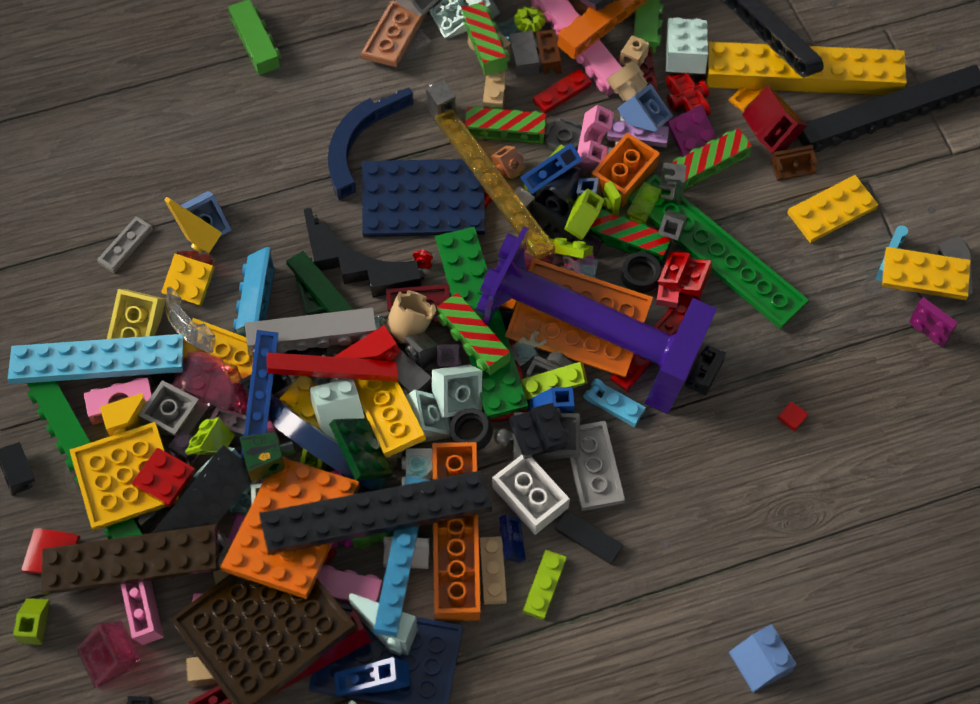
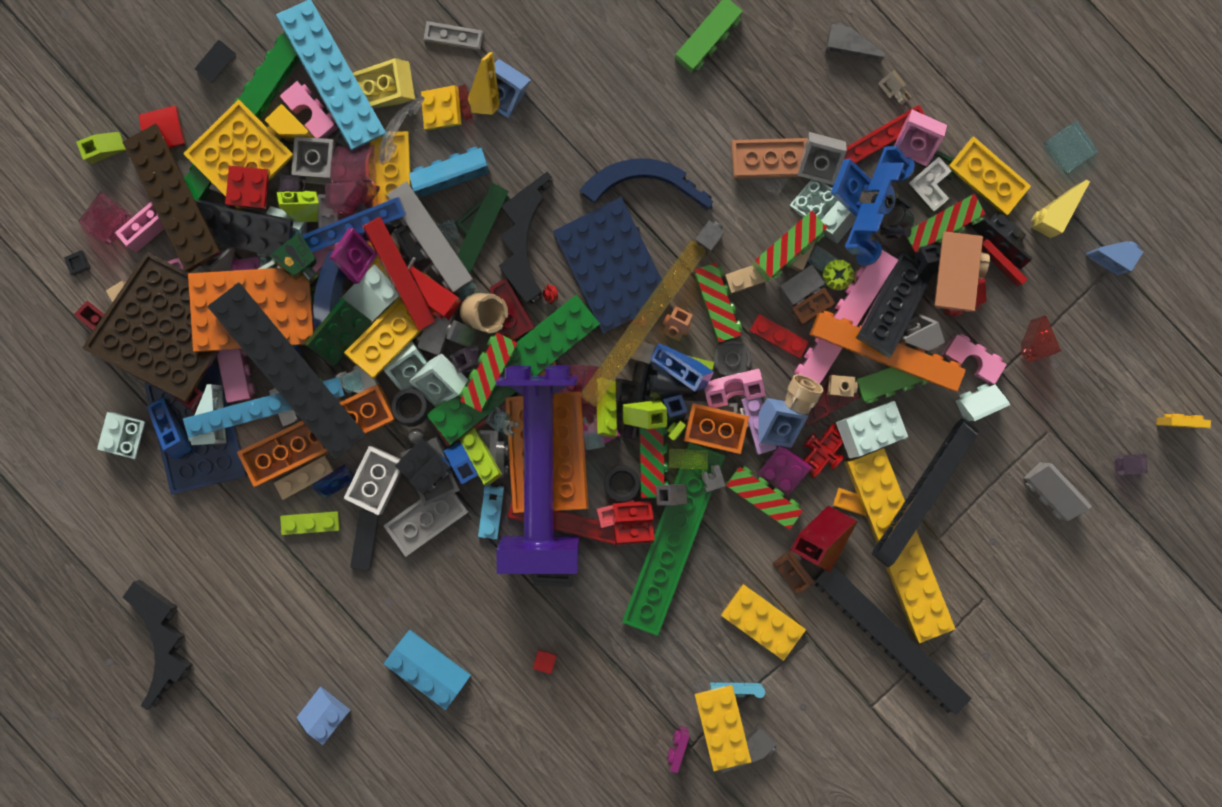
camera: 65 degrees right, 25 degrees up
(291, 399) = (353, 255): none -> magenta plate
(755, 531) = (427, 669): none -> dark azure slope

